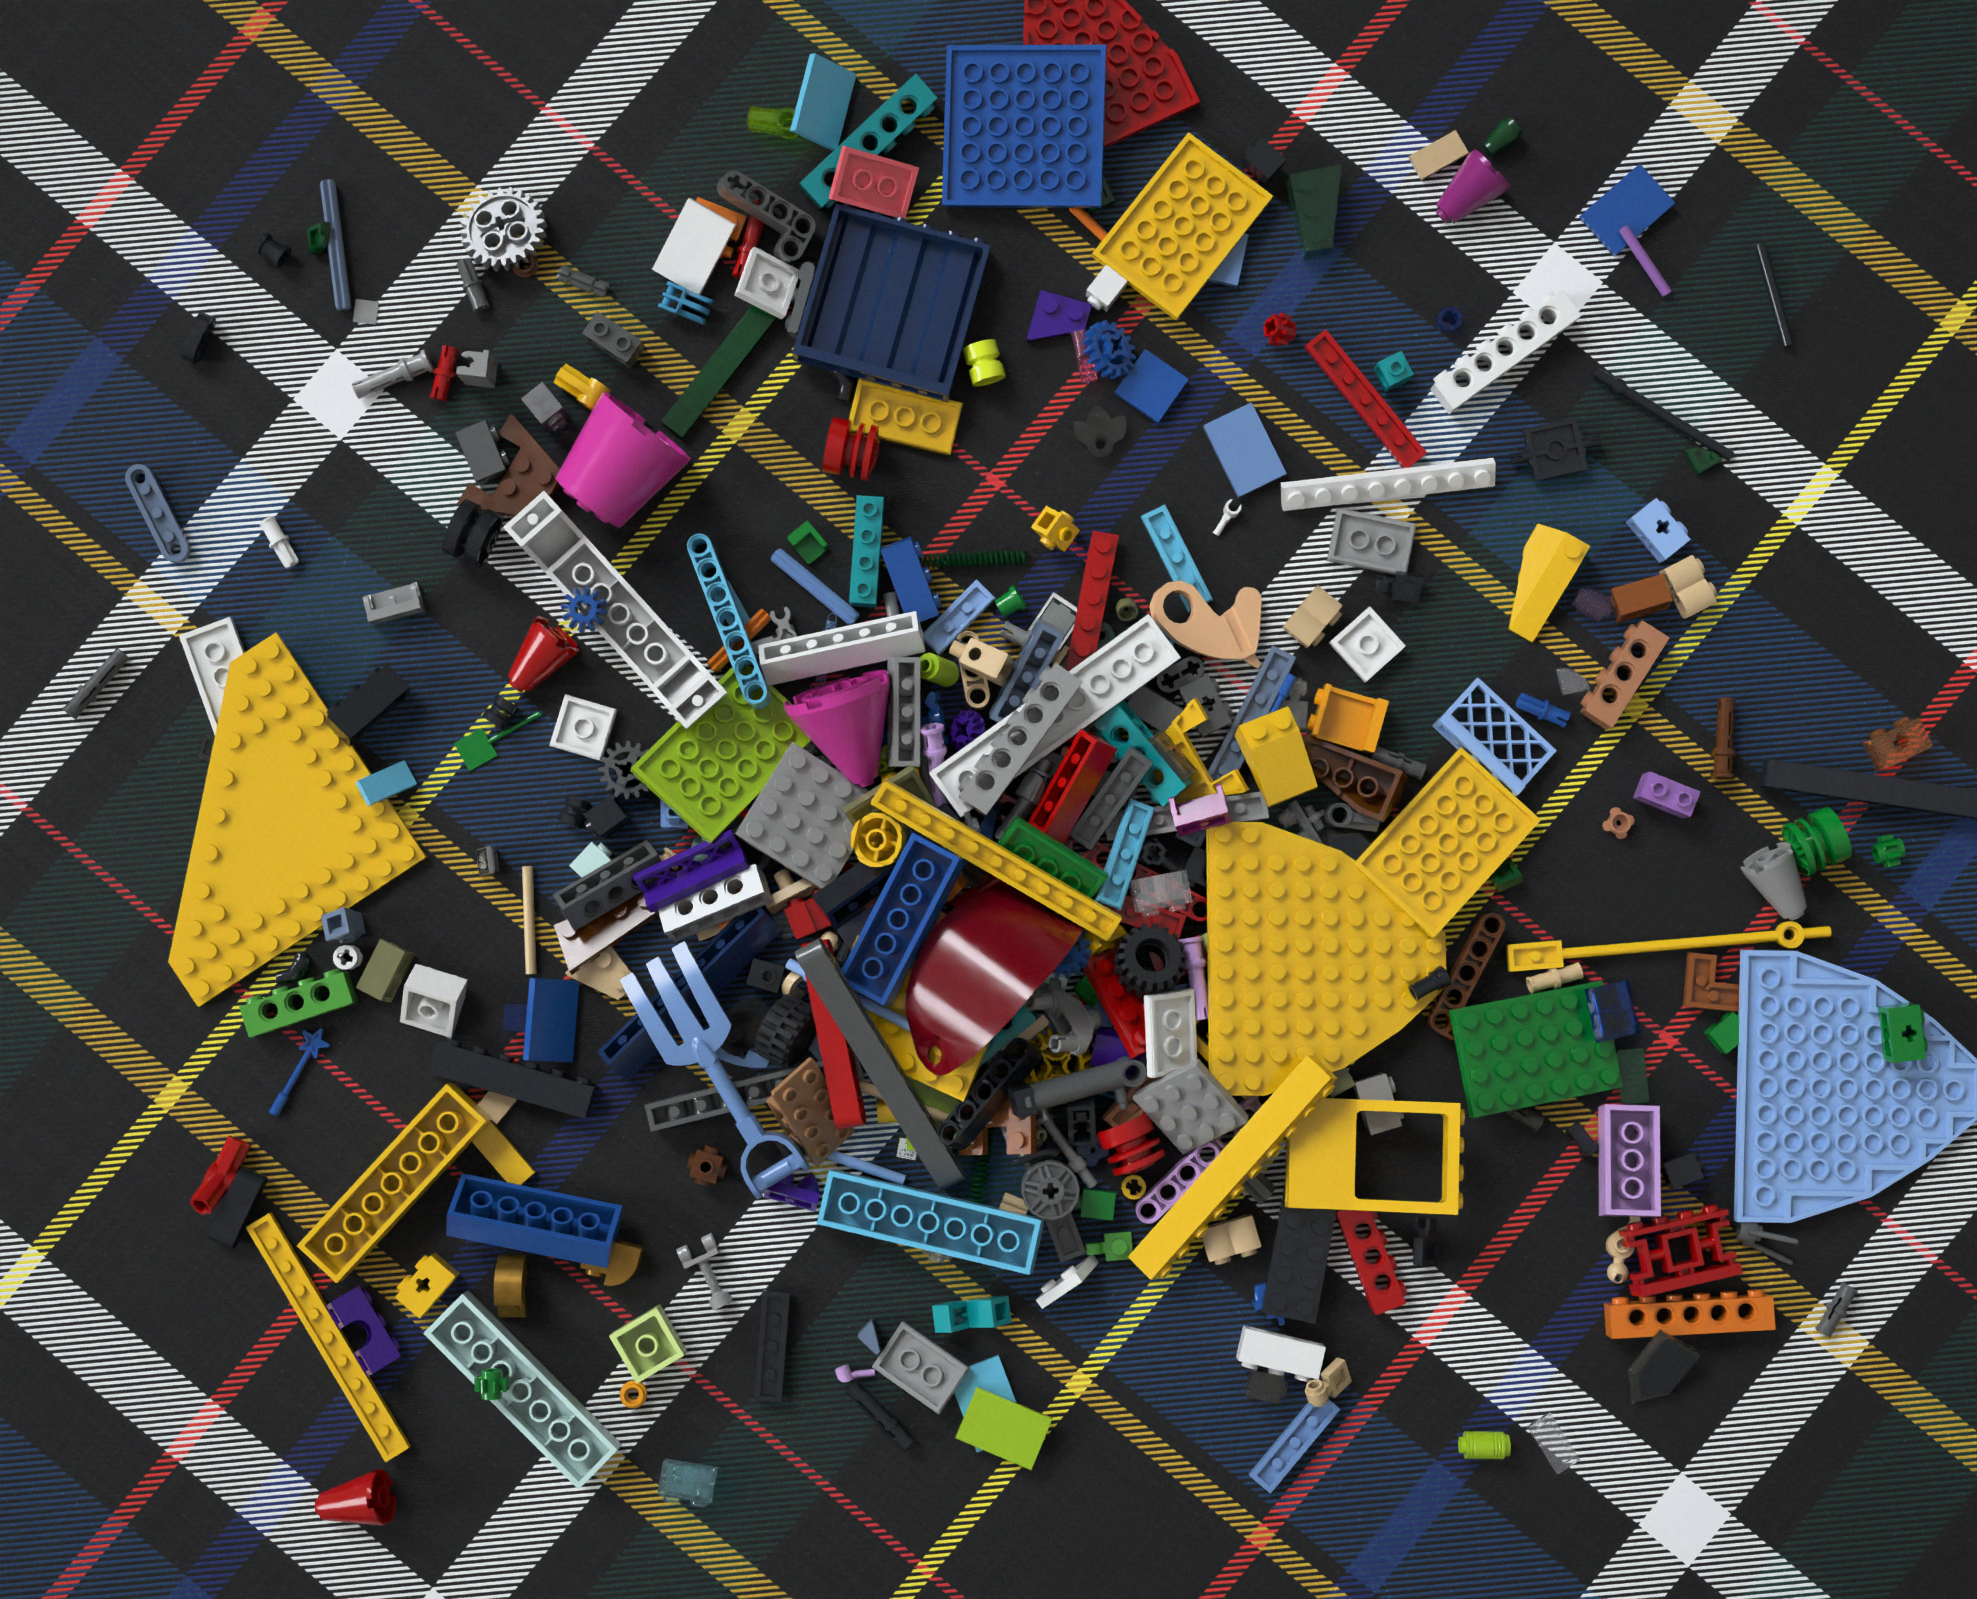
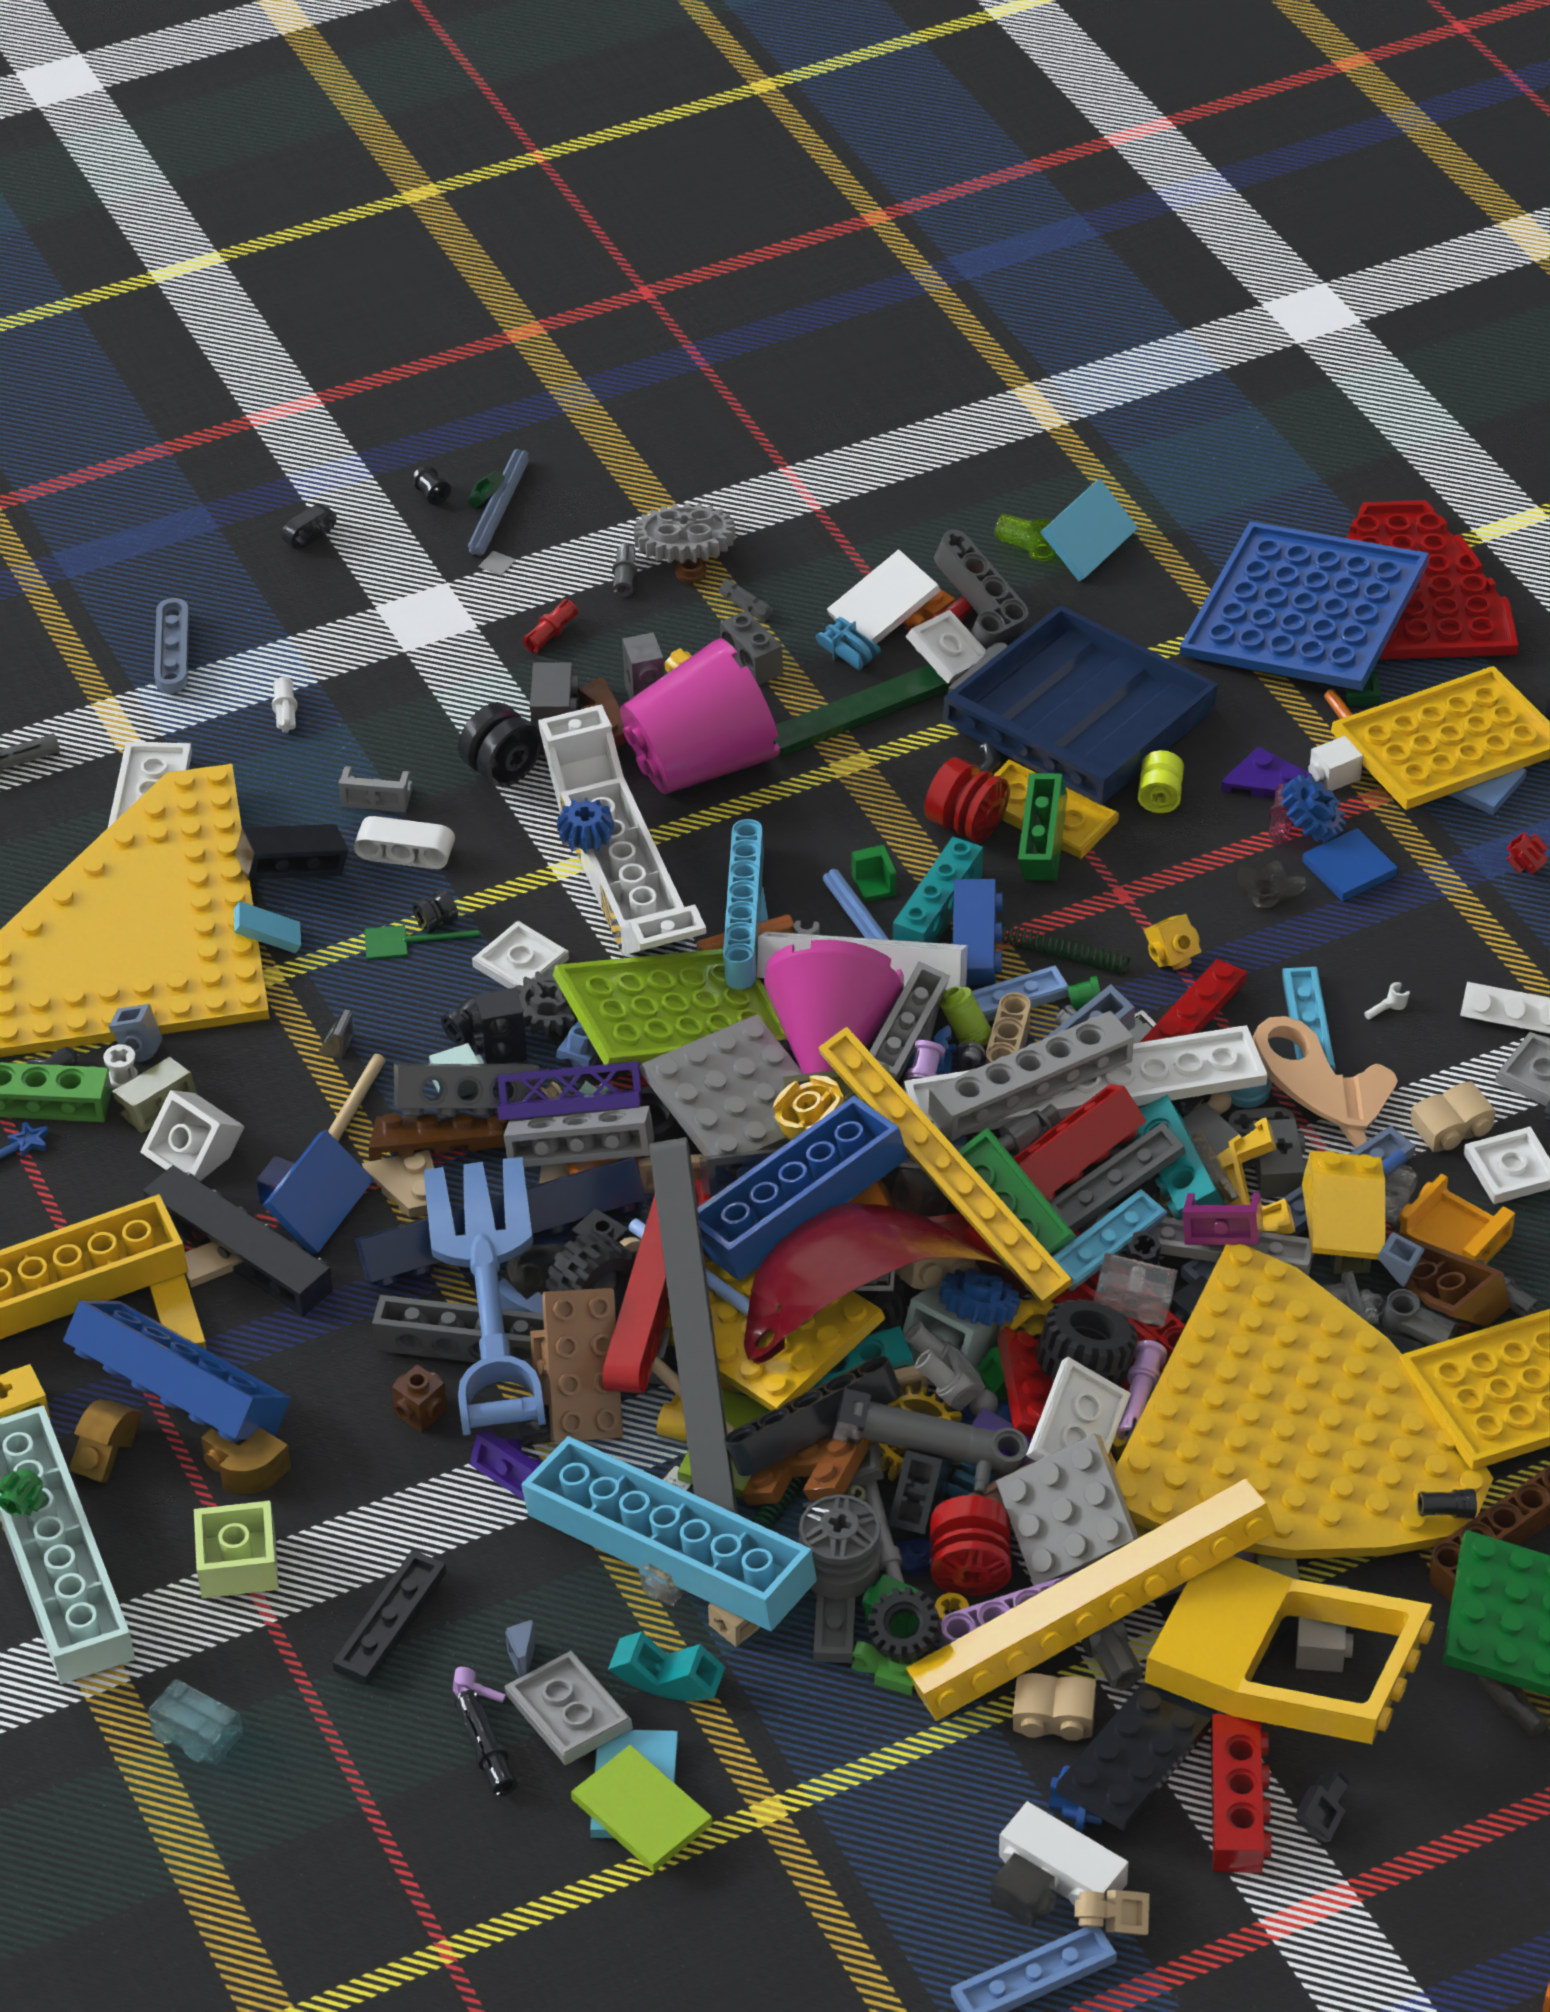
camera: 30 degrees right, 40 degrees down
(404, 370) = (509, 611): light grey pin -> none
(443, 651) = (404, 842): none -> white beam
(481, 371) = (589, 622): light grey hinge -> none
(541, 654) = (510, 871): red cone -> none
(627, 1400) = (180, 1601): light orange plate -> none
(719, 1297) = (353, 1544): light grey bar -> none
(873, 182) = (1111, 596): coral plate -> none
(913, 91) = (1135, 566): teal brick -> none
(918, 455) = (1042, 826): none -> green brick
(955, 701) = (969, 1055): none -> flat silver arm
(992, 664) = (1026, 1006): tan torso -> none
(1069, 1279) = (810, 1673): white wing -> none
(1116, 1246) = (898, 1603): none -> black tyre
(1244, 450) = (1436, 950): medium blue tile -> none
(1328, 783) = (1400, 1257): none -> sand blue slope

